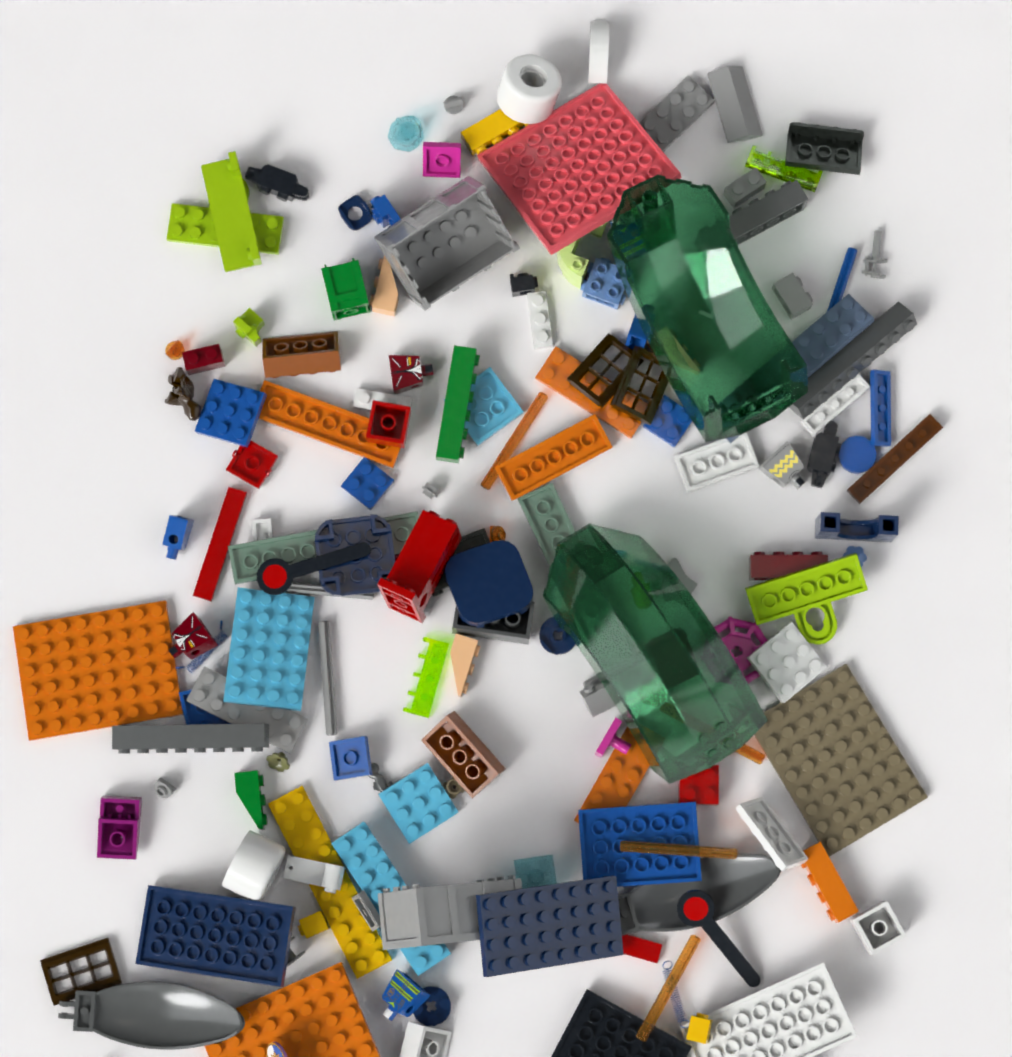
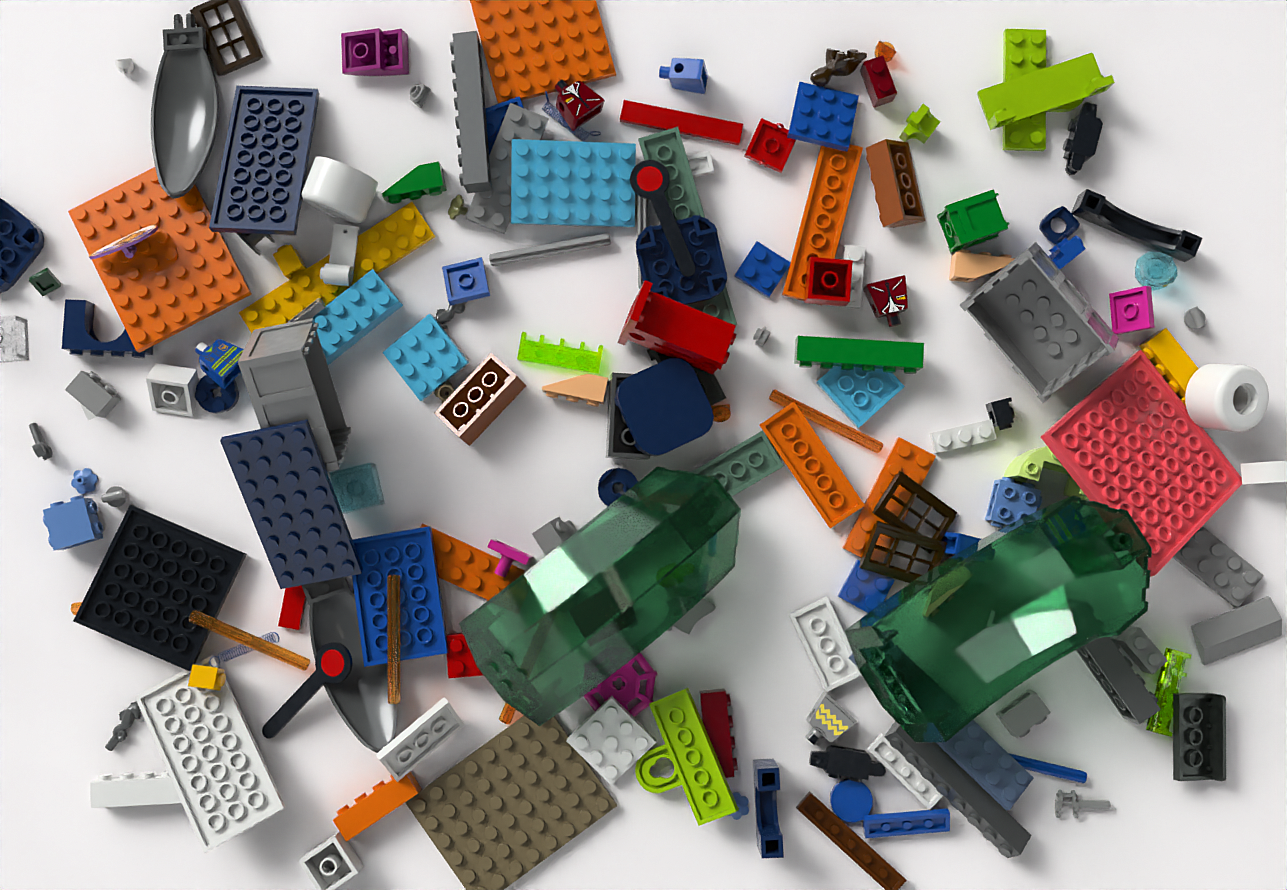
camera: 85 degrees right, 5 degrees up
(353, 167) = (1099, 211): none -> black arch

